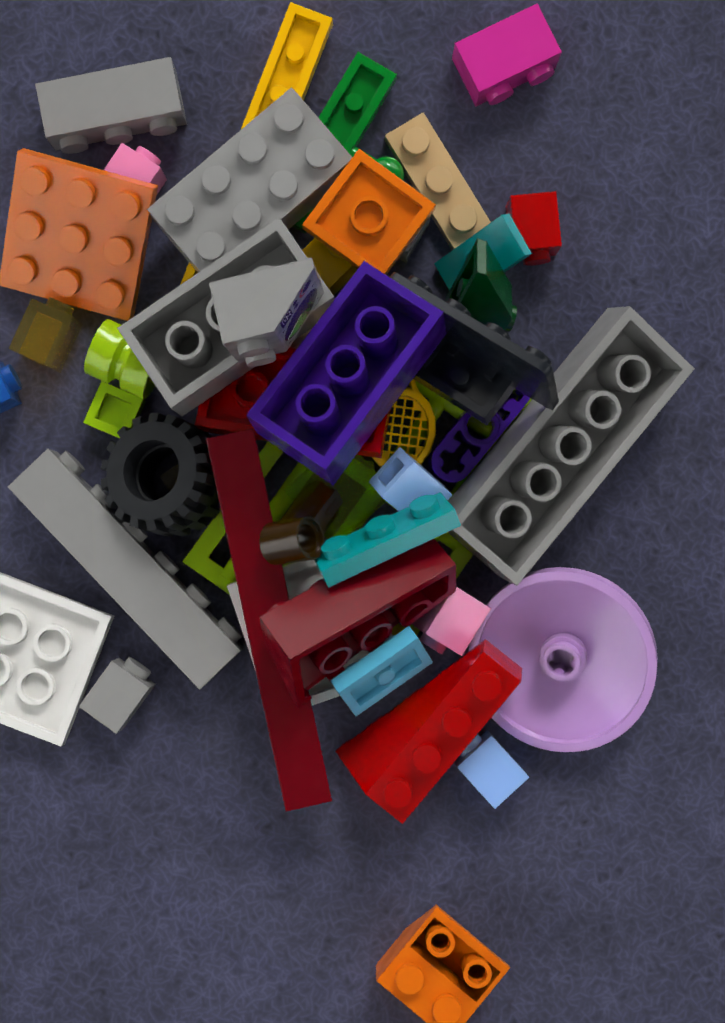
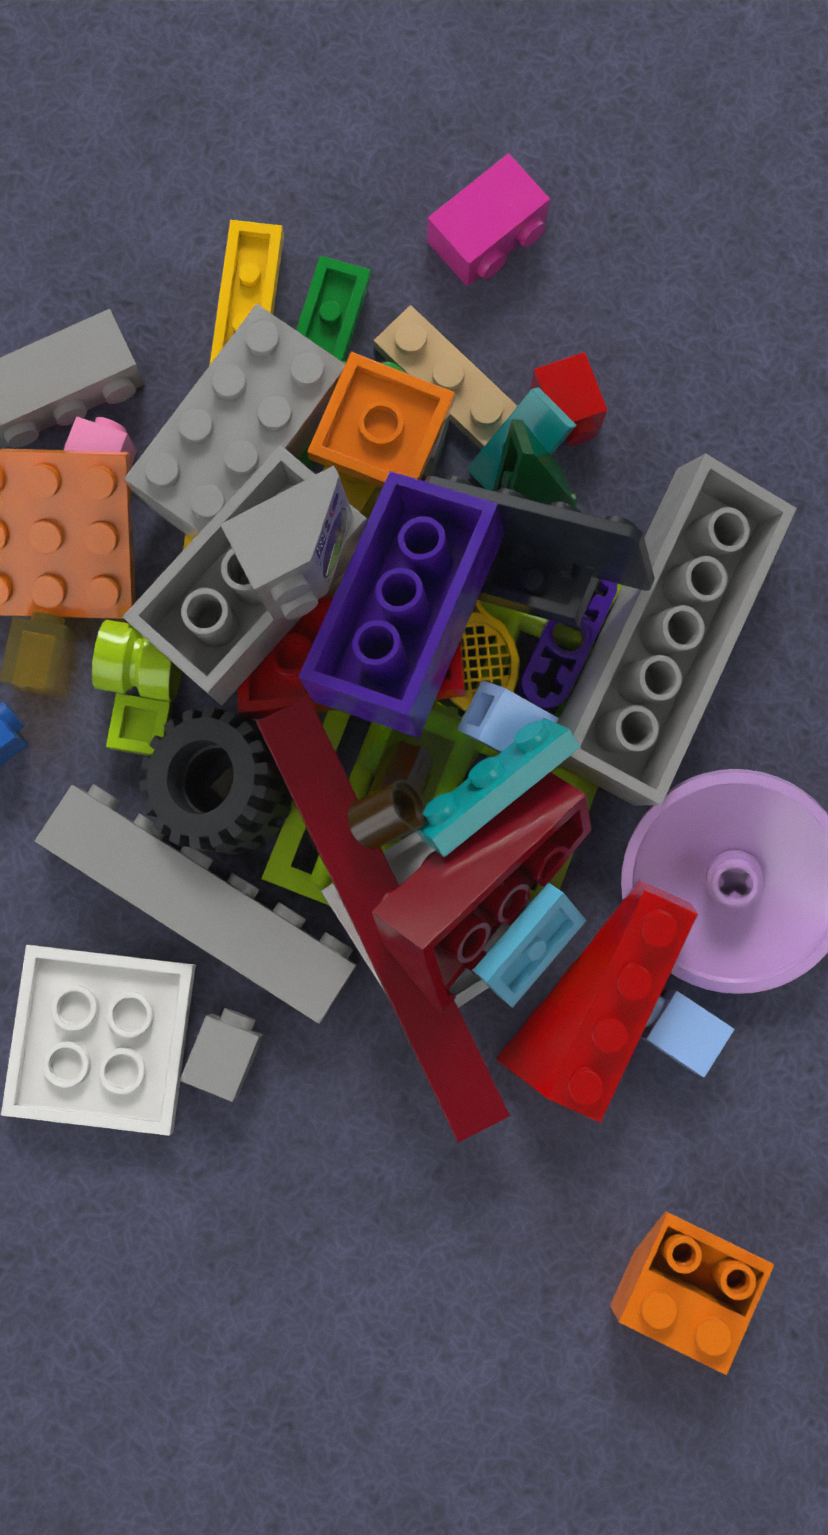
camera: 15 degrees left, 5 degrees down
(452, 622) = (596, 869): bright pink brick -> none

